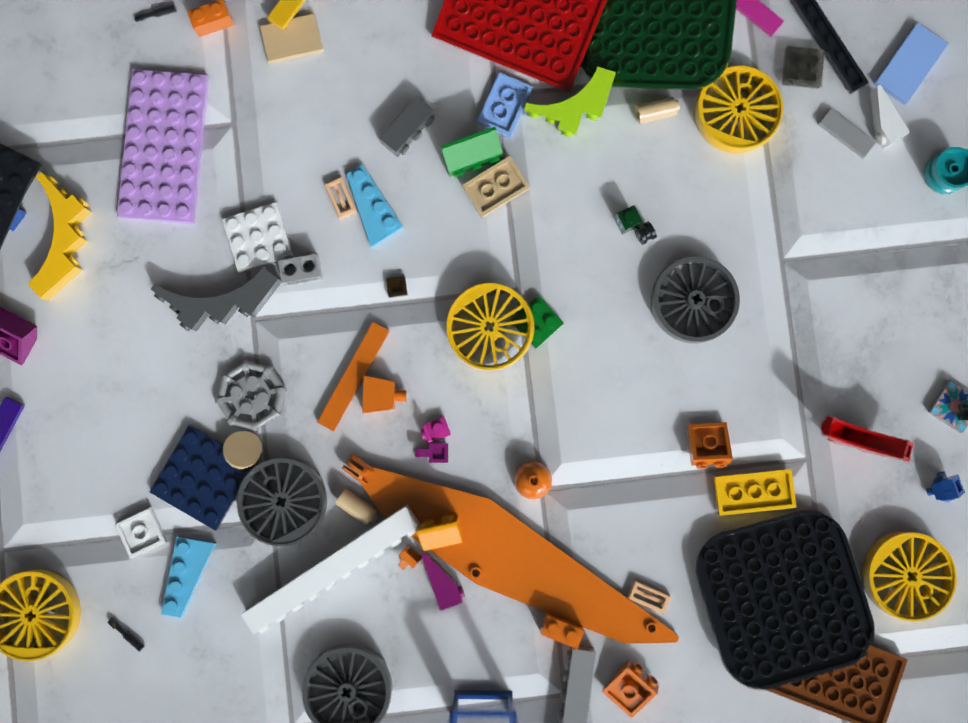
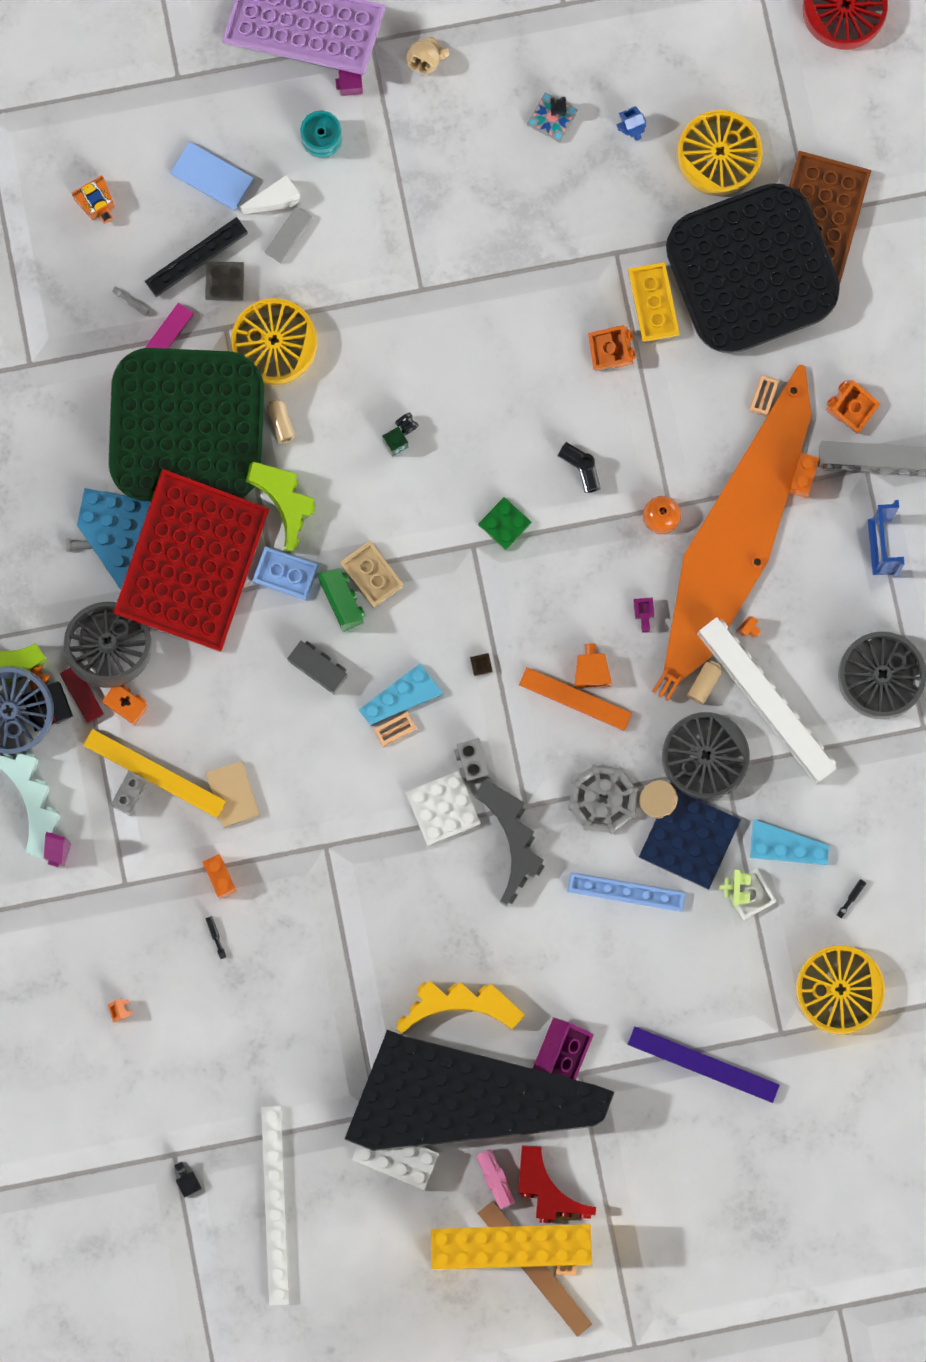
camera: 90 degrees left, 5 degrees down
(133, 520) = (737, 896): none -> yellowish green hips
(156, 410) = (626, 892): none -> light blue tile
(163, 146) = (355, 914): lavender plate -> none
(435, 430) = (621, 613): dark pink bracket -> none
(440, 533) = (721, 596): light orange slope -> none
(443, 584) = (774, 590): magenta slope -> none
(471, 295) = (486, 588): yellow piece -> none
(579, 409) = (588, 474): none -> black piece
(659, 290) = (463, 407): dark grey piece -> none
(866, 440) = (594, 201): red arch -> none

